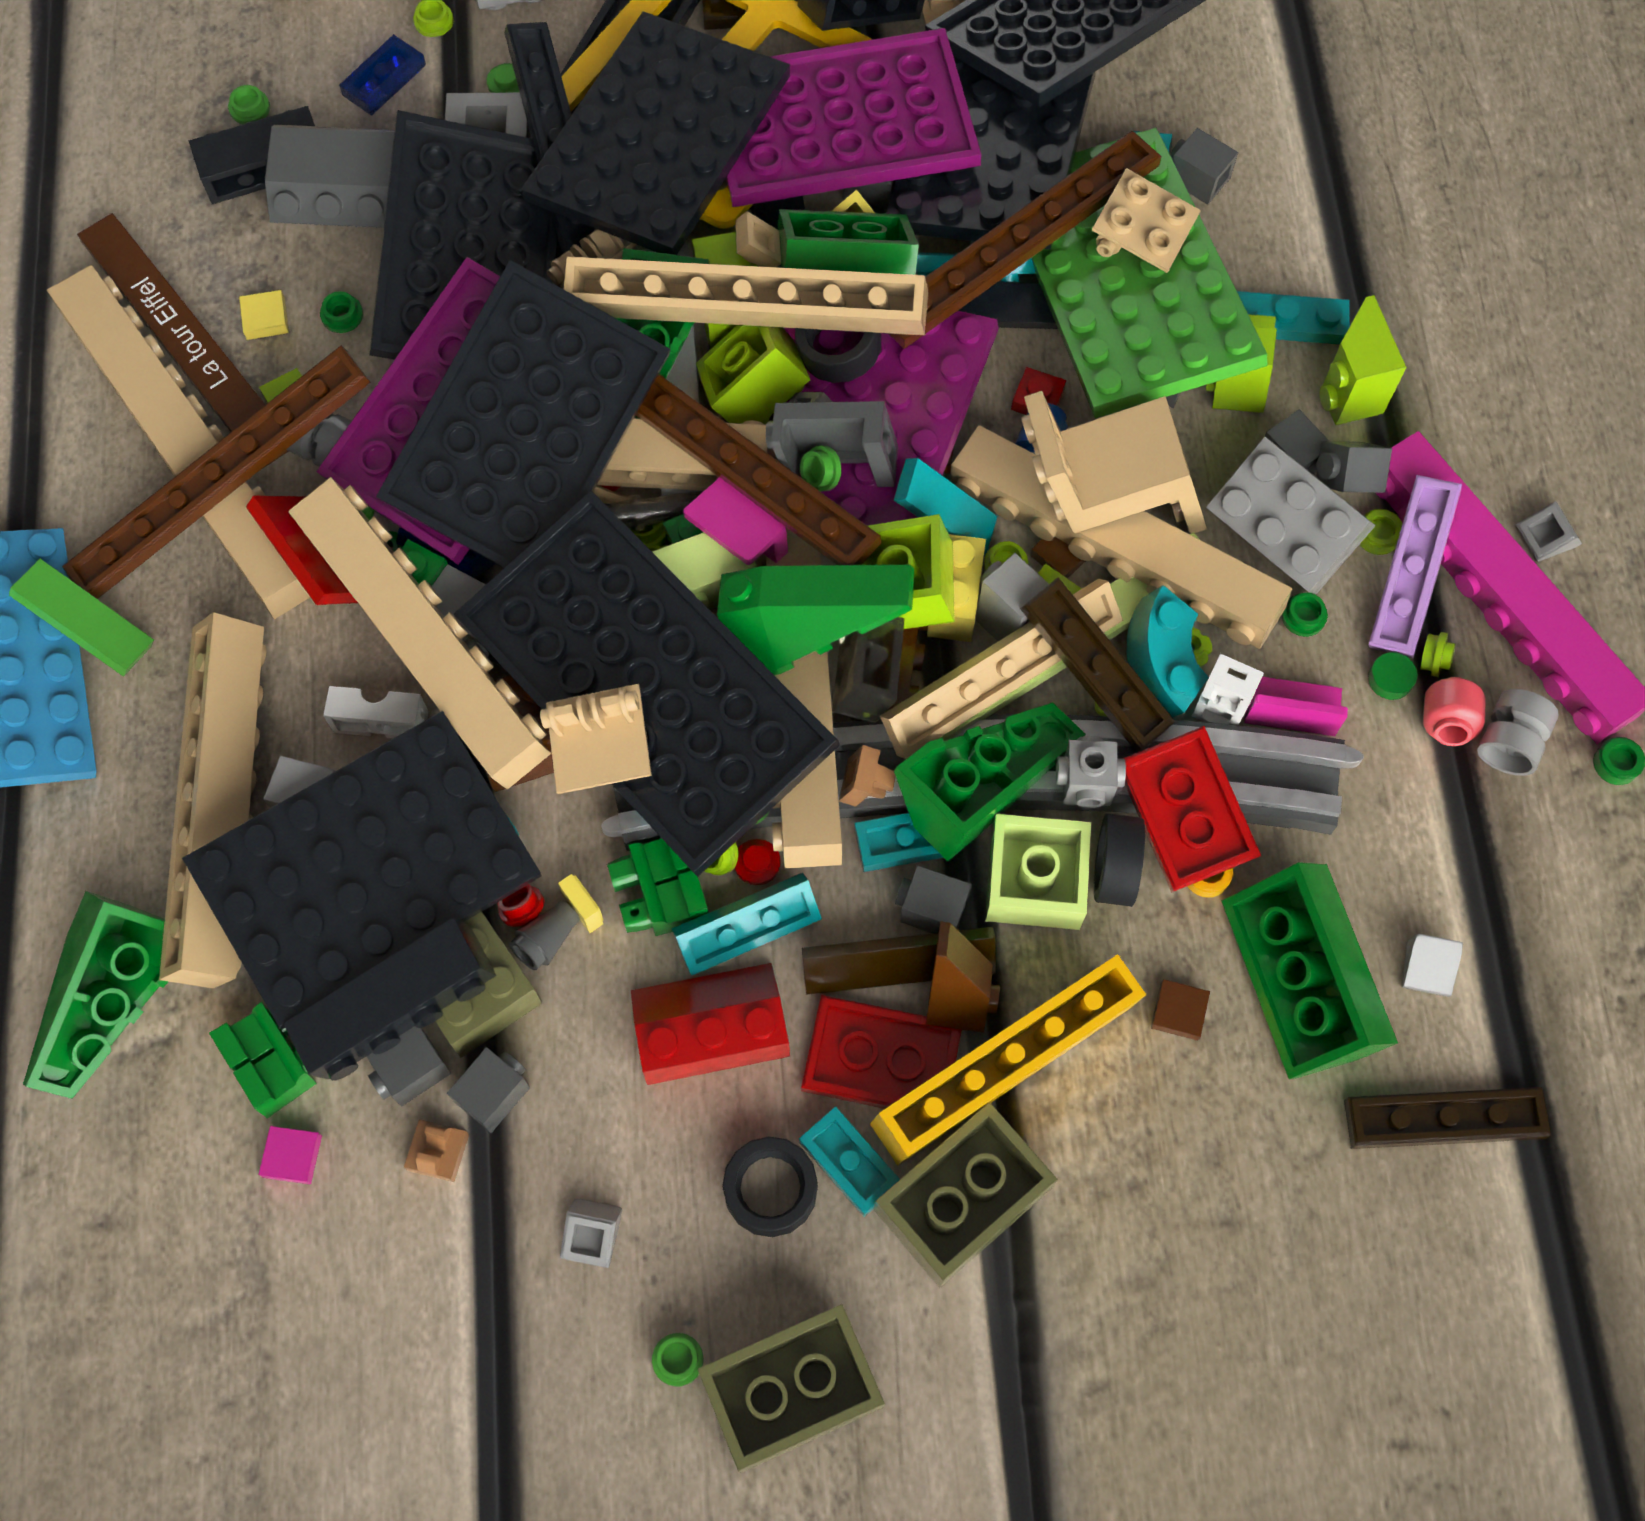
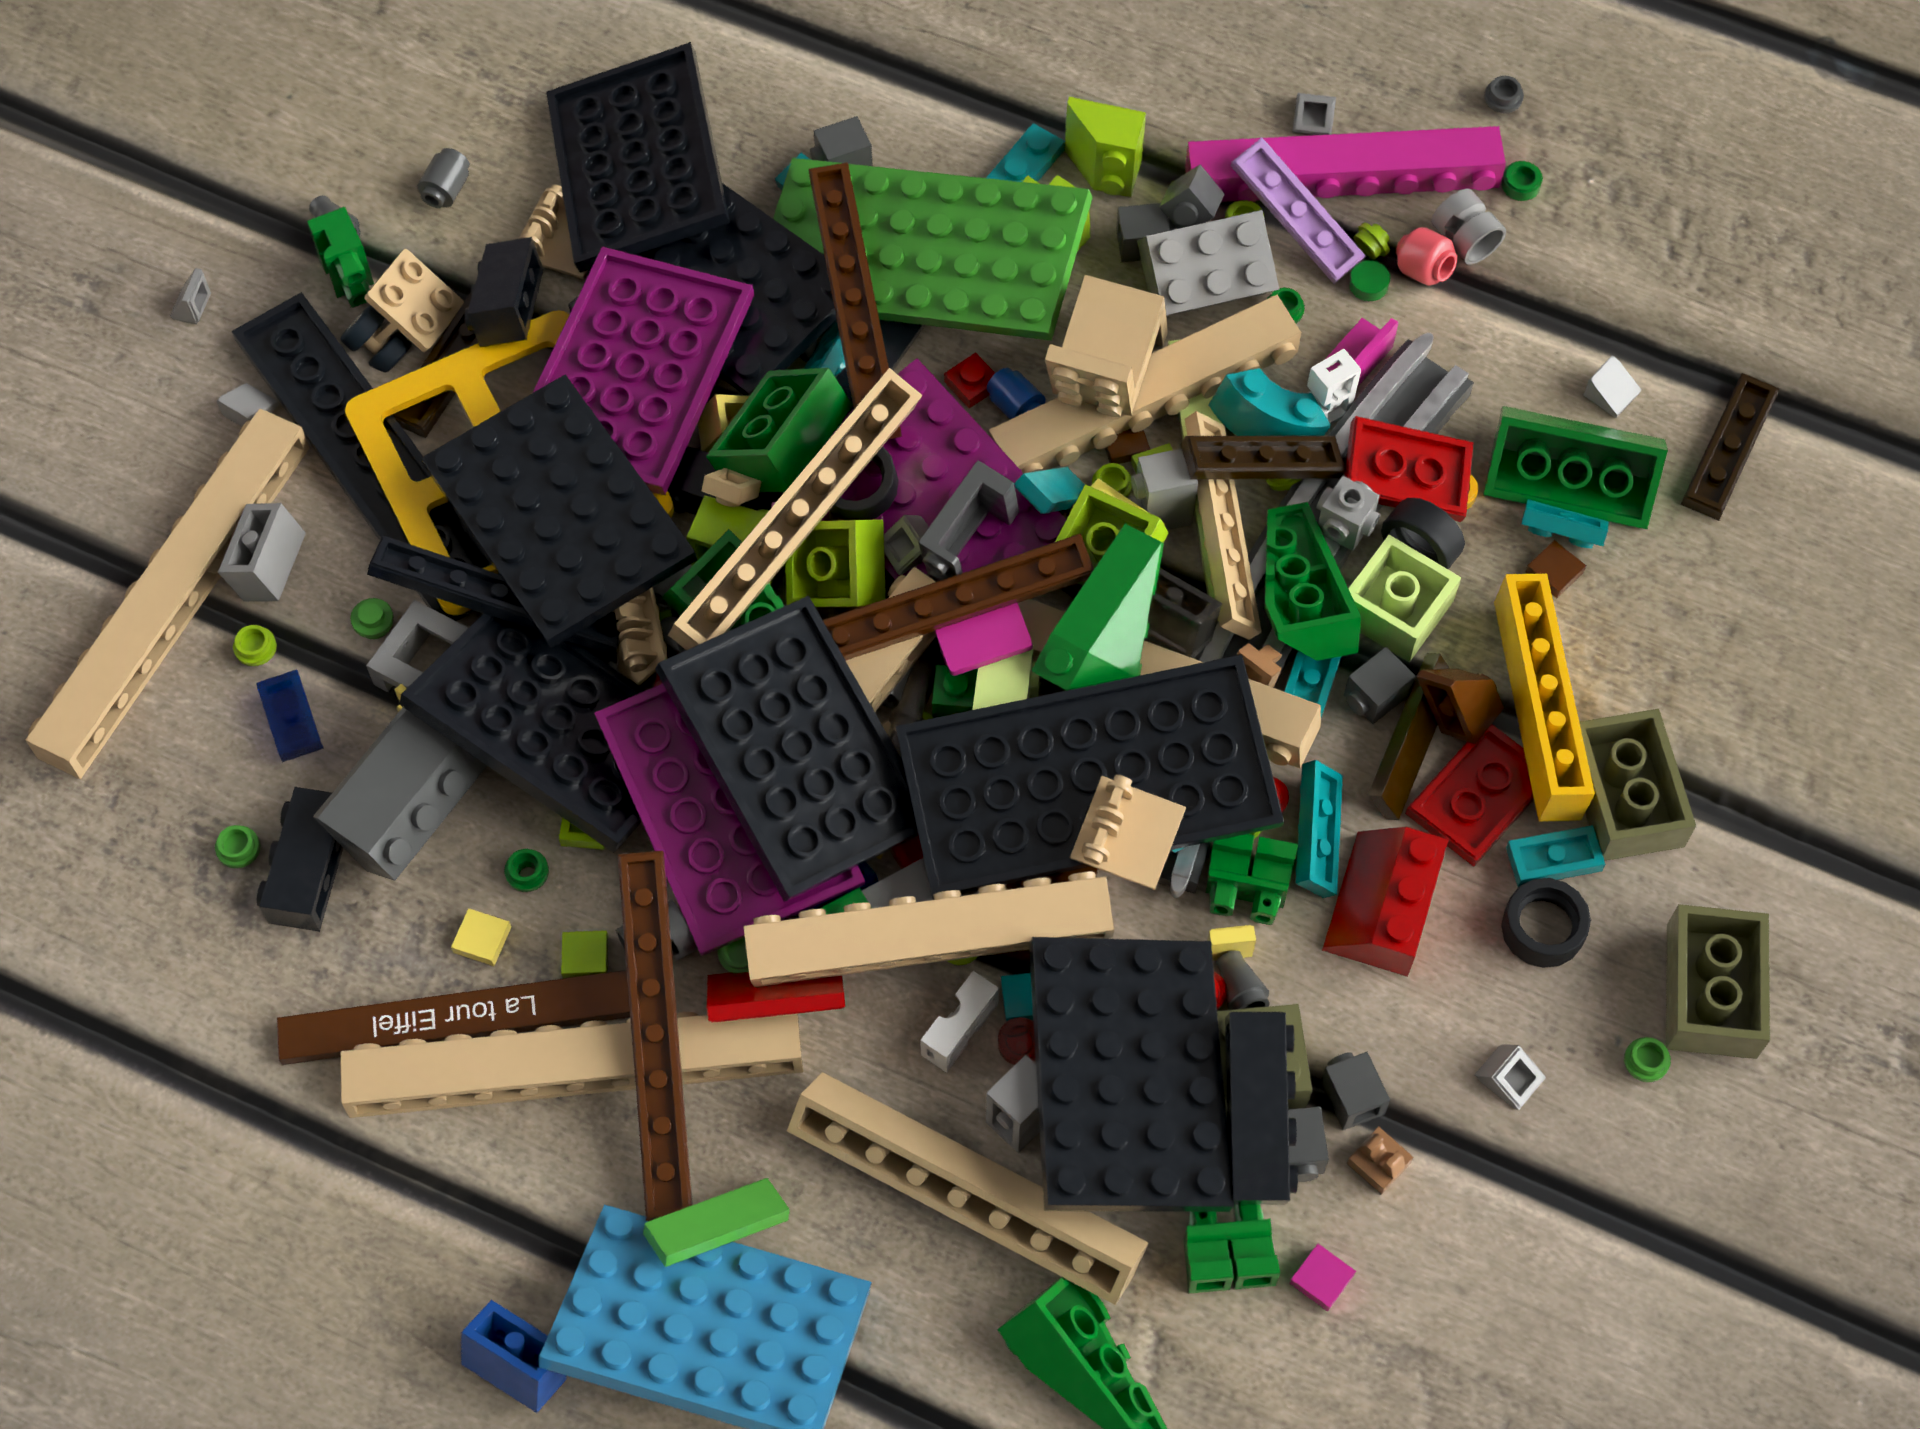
camera: 60 degrees left, 5 degrees down
(821, 468) = (972, 551): bright green plate -> none
(1144, 221) = (901, 207): tan hinge -> none
(1234, 992) = (1580, 528): none -> teal plate

